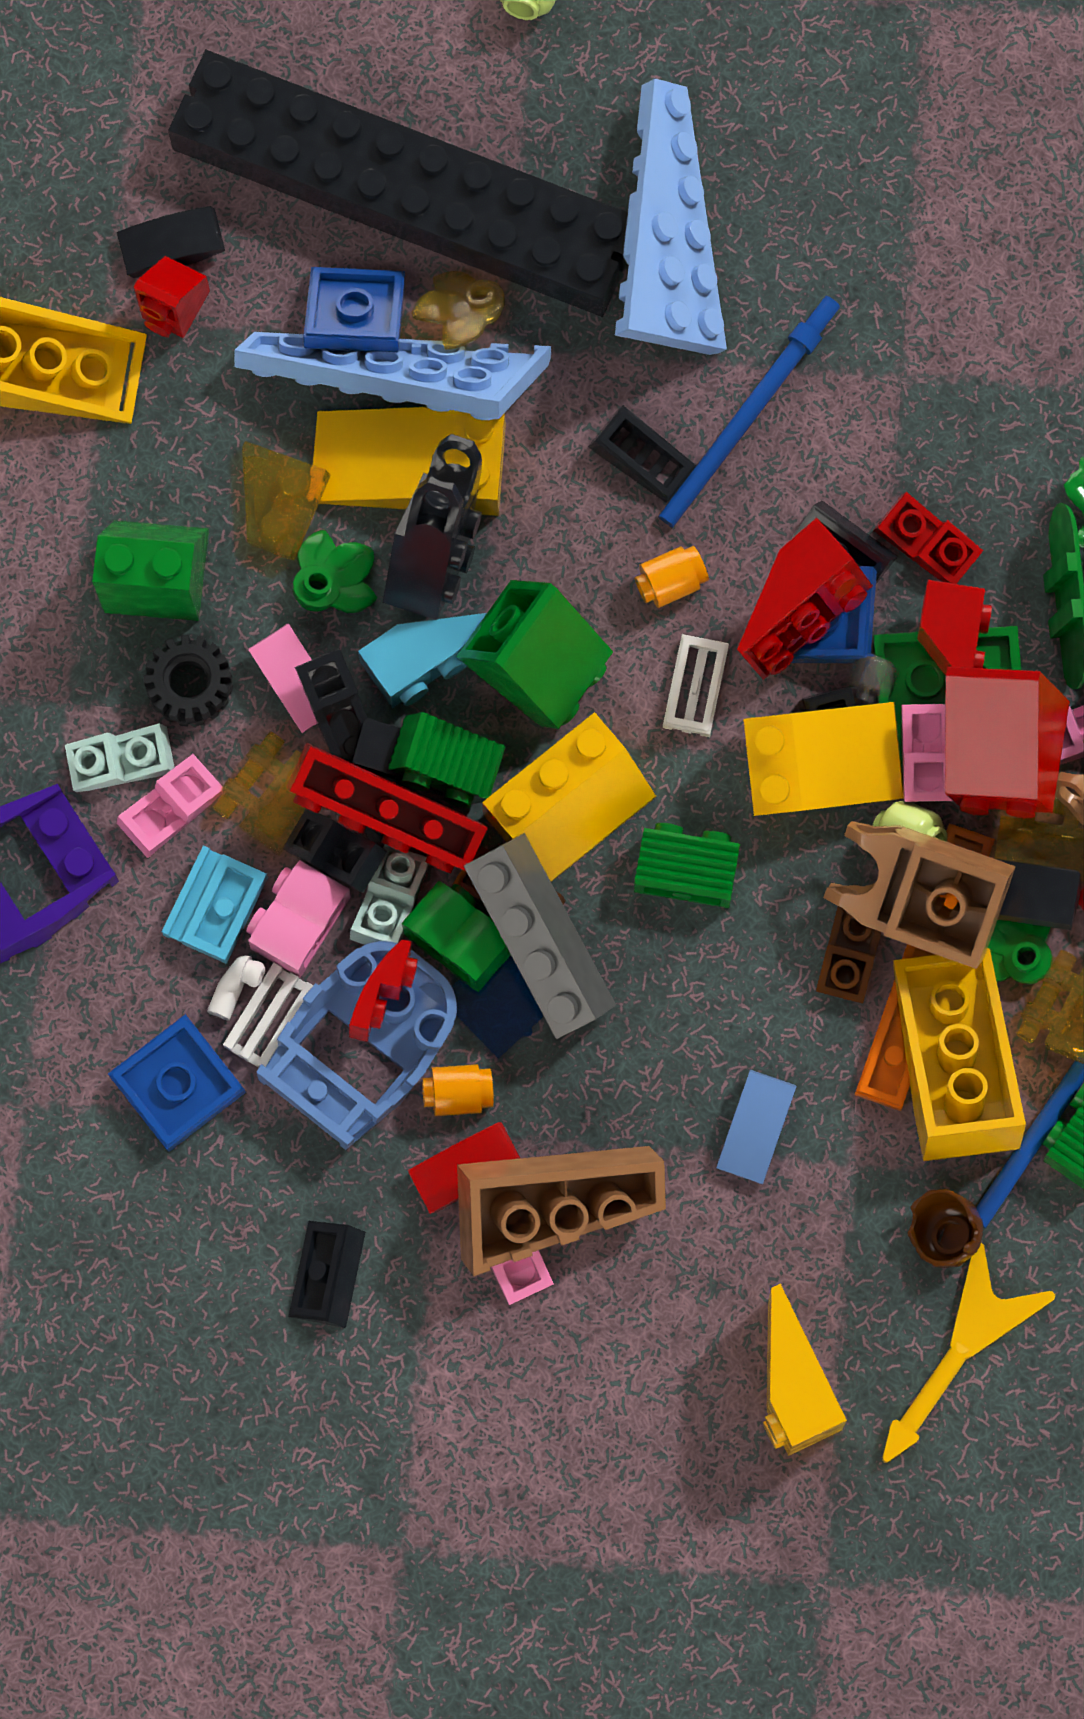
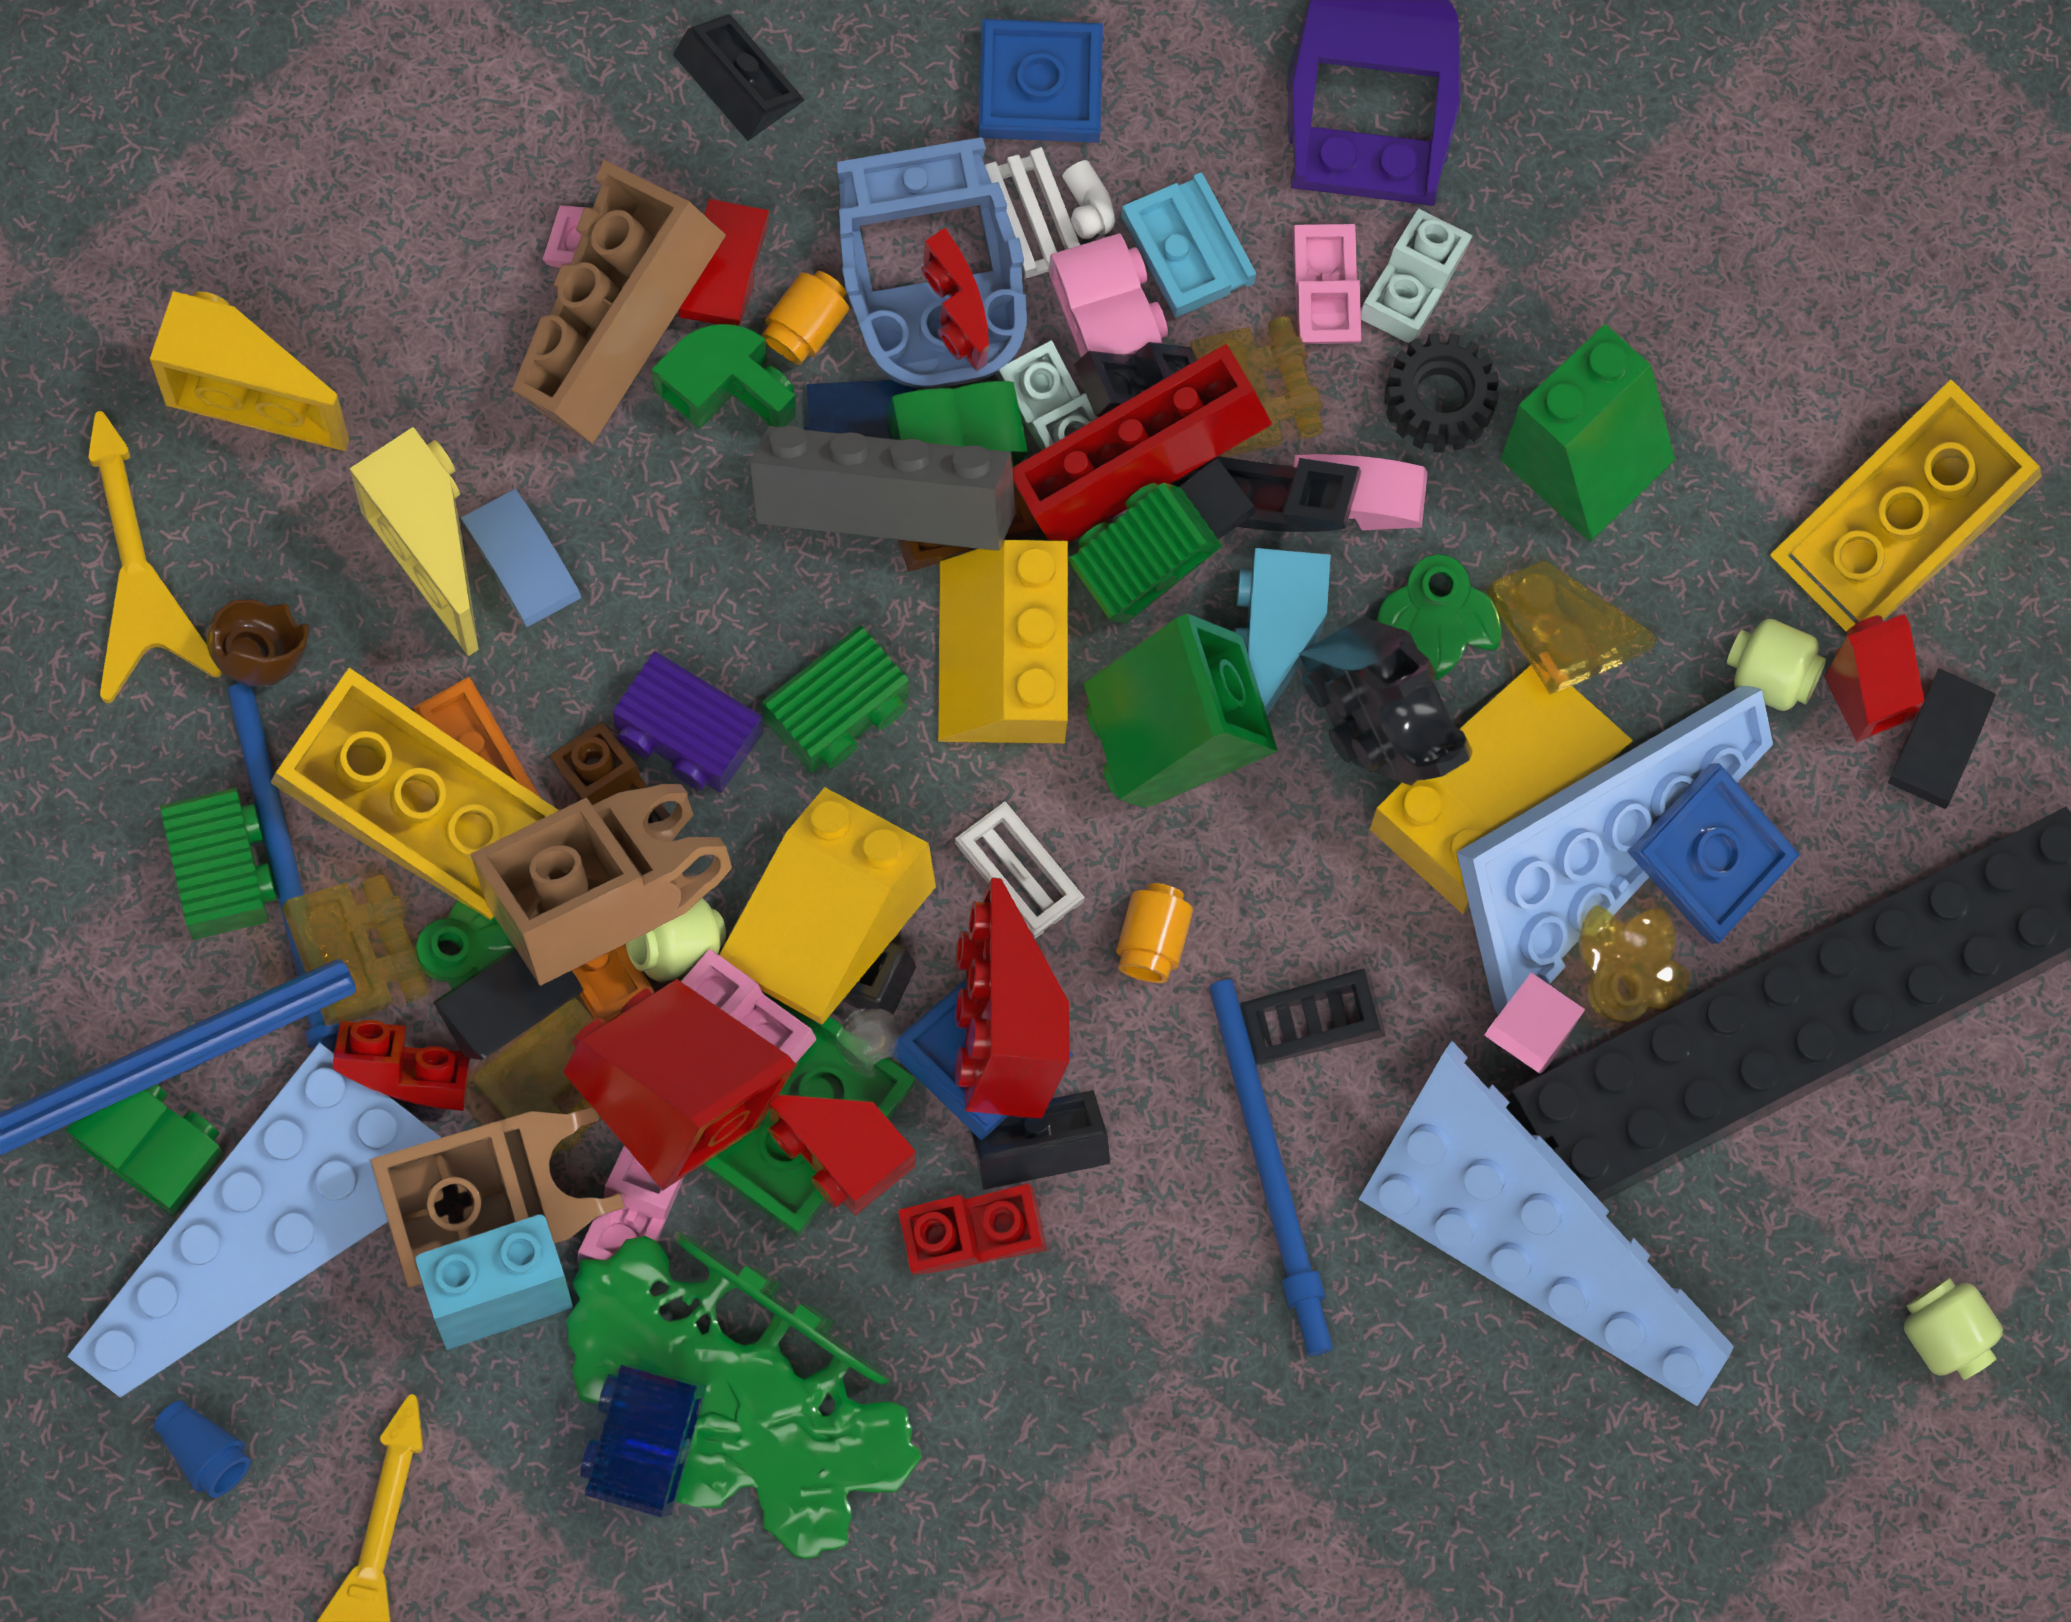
camera: 120 degrees right, 5 degrees down
(205, 359) = (1777, 661): none -> yellowish green head
(540, 1114) = (720, 364): none -> green brick
(558, 316) = (1535, 1023): none -> bright pink slope
(776, 939) = (686, 724): none -> dark purple brick
(792, 1188) = (413, 510): none -> light yellow slope

